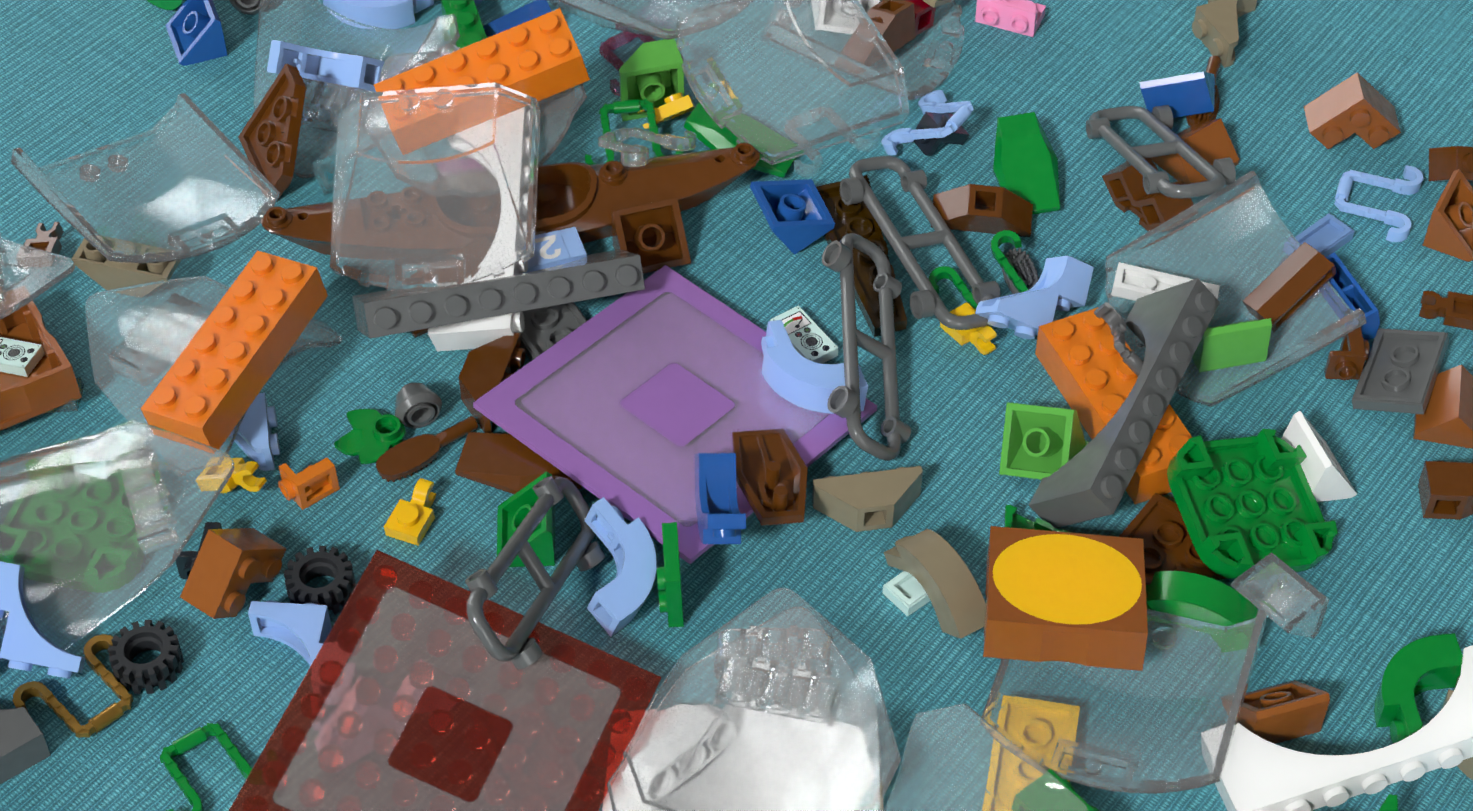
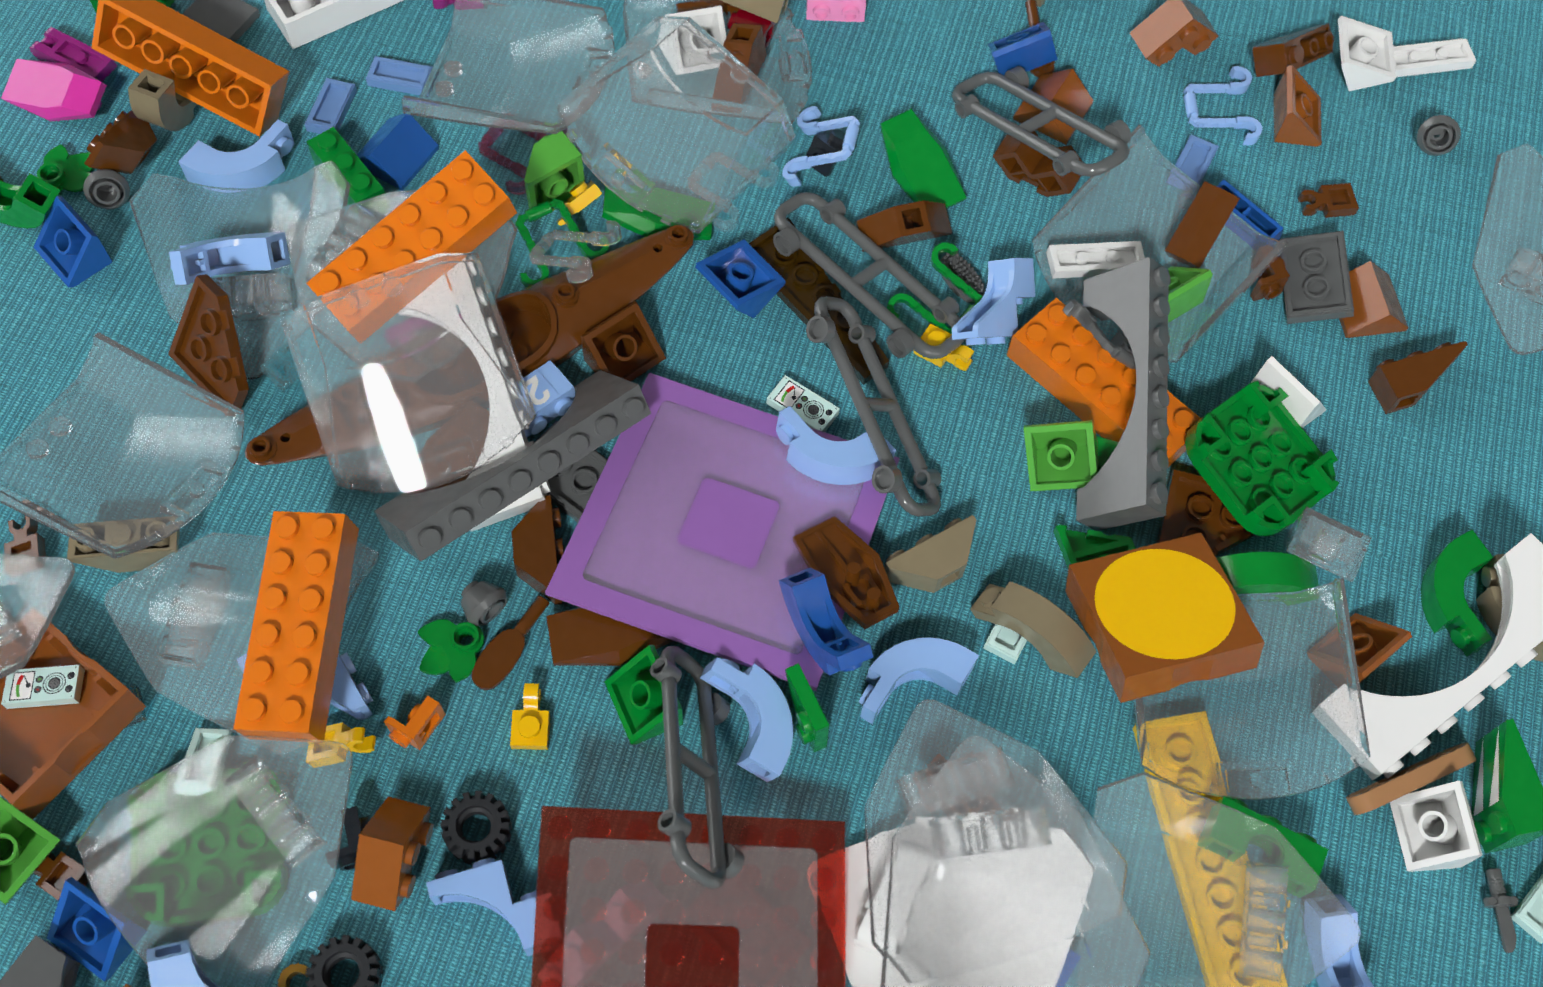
camera: 25 degrees left, 15 degrees up
(810, 575) = (915, 659): none -> light blue arch

